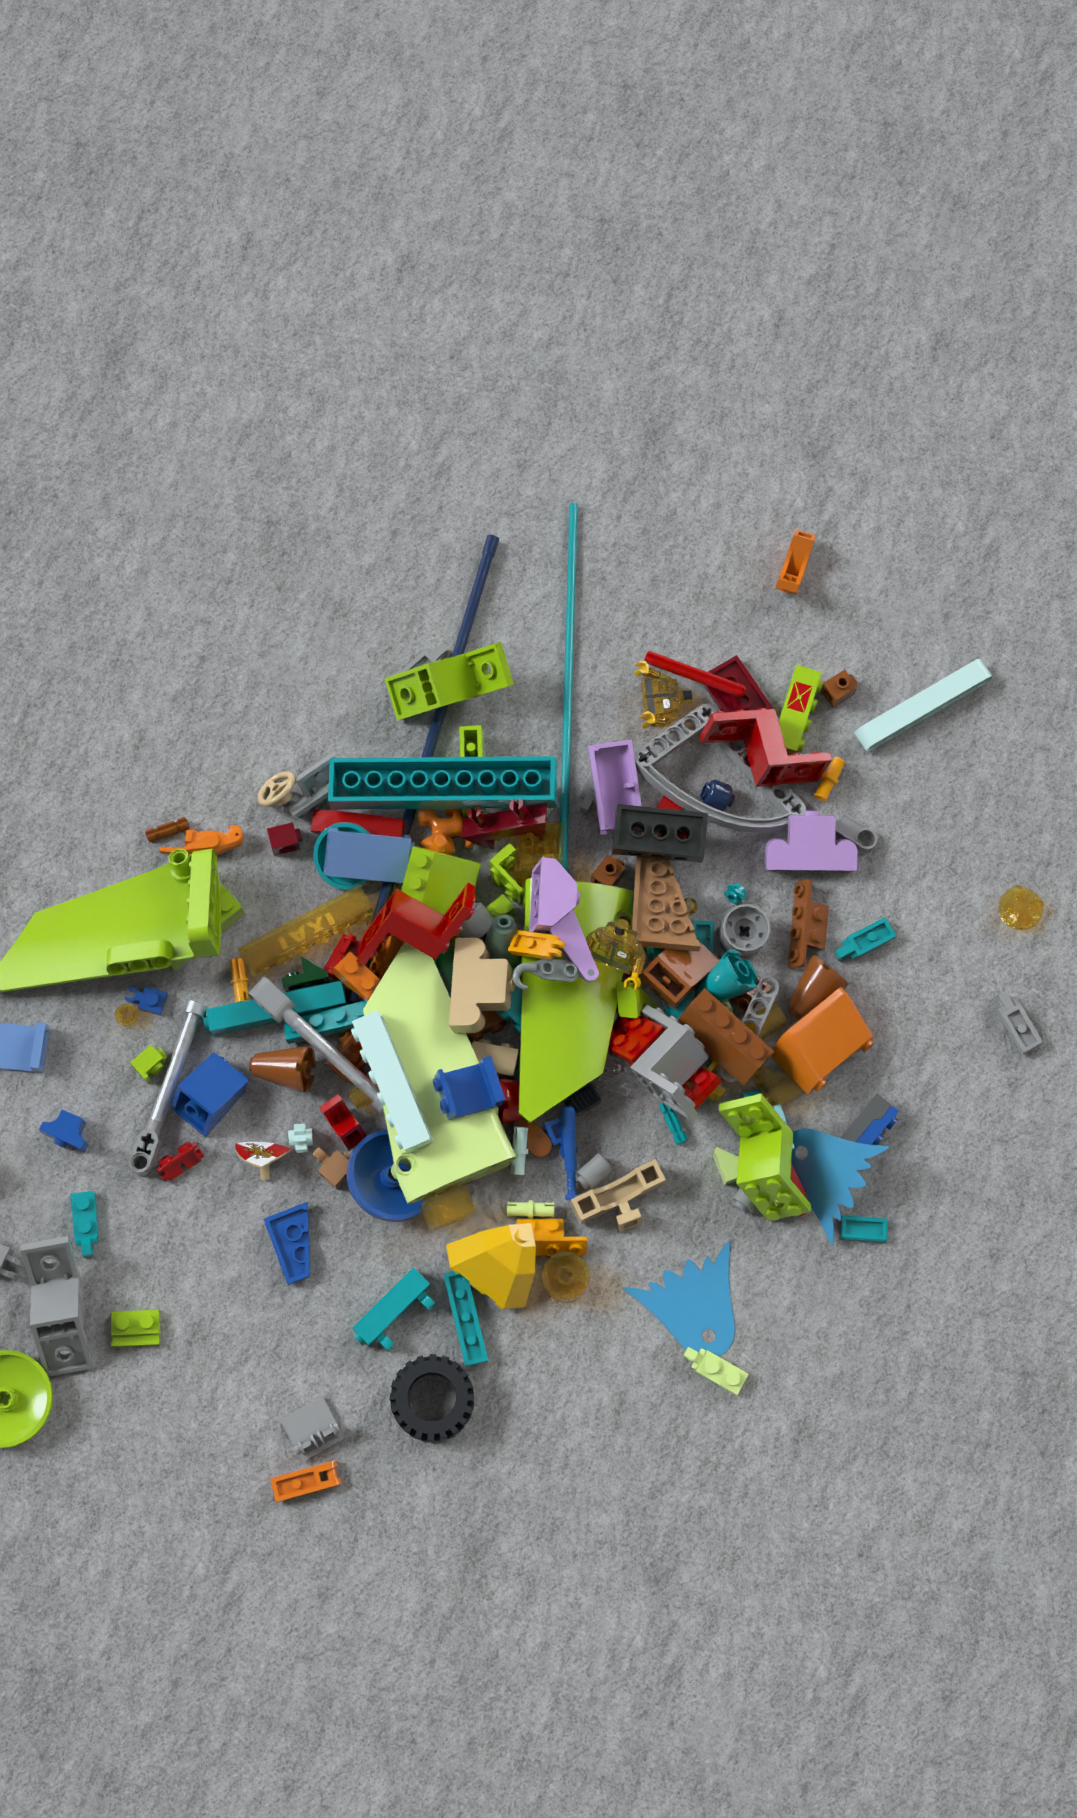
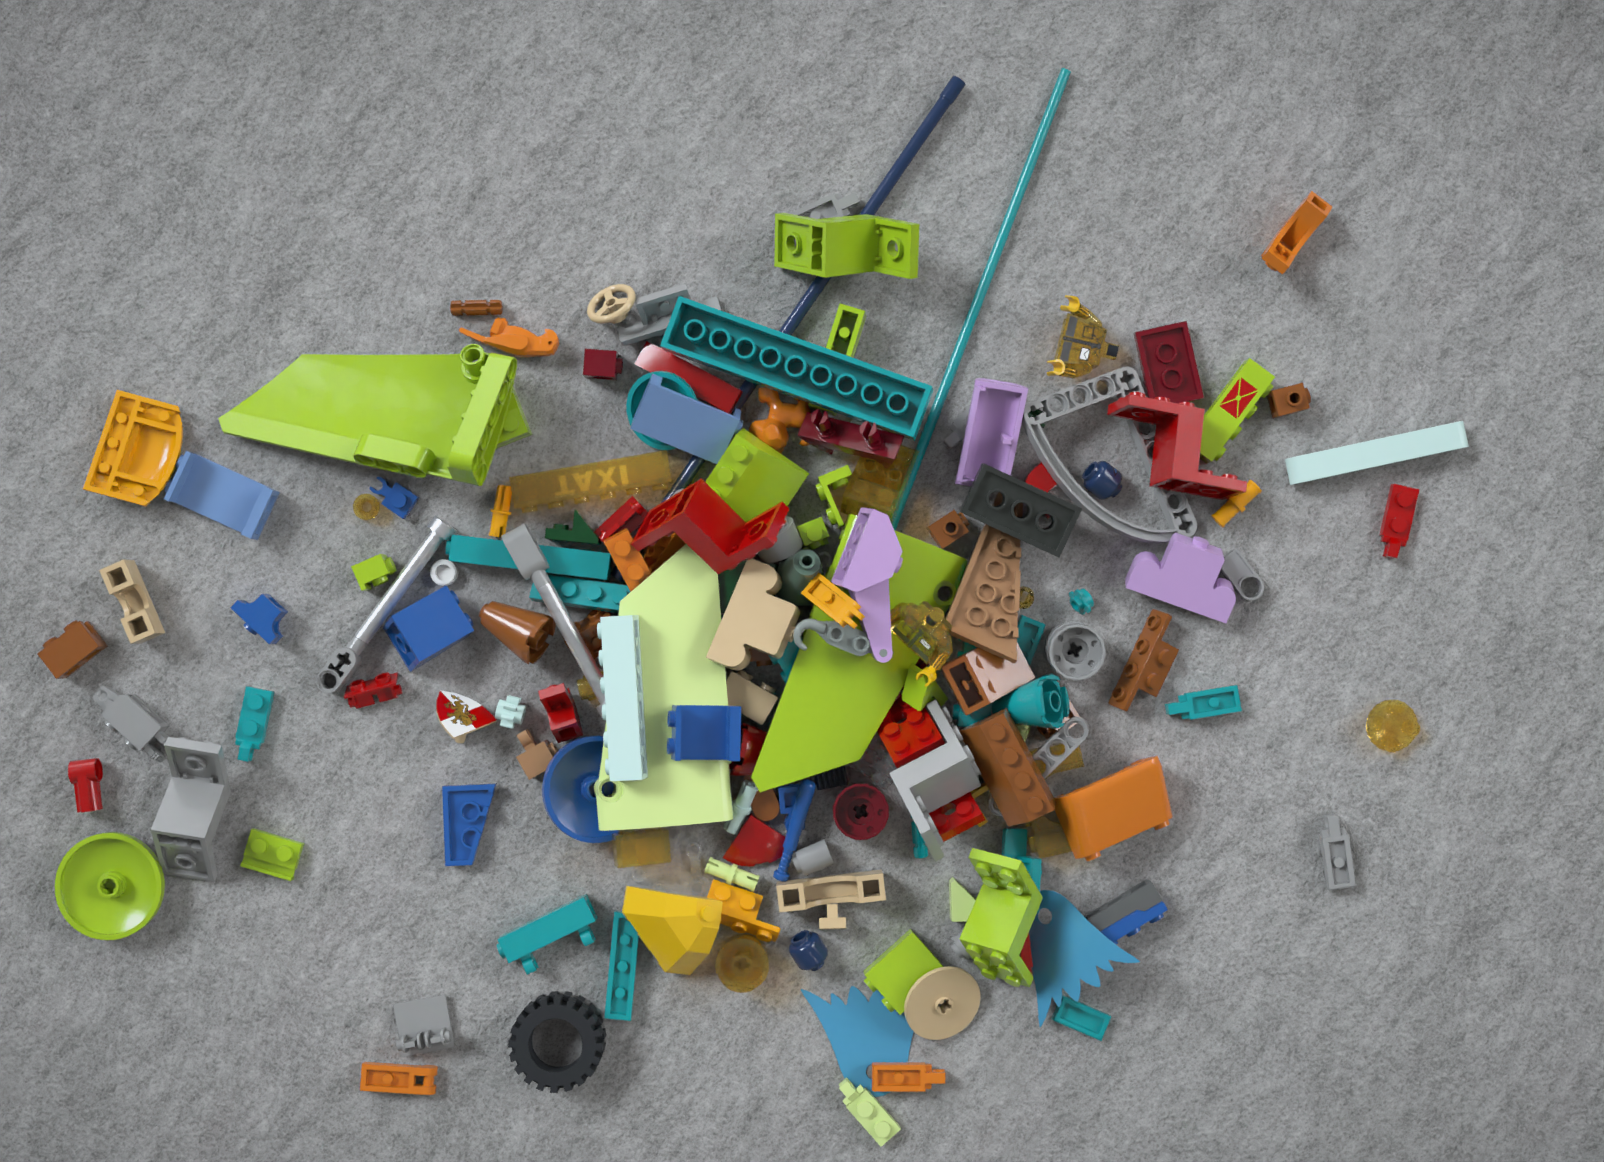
camera: 20 degrees right, 15 degrees up
(207, 1045) = (444, 572): none -> white tile
(542, 1178) = (755, 844): none -> red brick
(612, 1106) = (863, 827): none -> dark red wheel
(616, 1250) = (808, 950): none -> dark blue head
(695, 674) = (1130, 329): red axle -> none
(703, 1240) = (899, 969): none -> lime brick
(731, 1241) = (932, 989): none -> tan piece
(735, 1327) = (905, 1076): none -> orange hinge
(814, 987) = (1129, 740): dark orange cone -> none
(960, 749) = (1398, 518): none -> red hinge

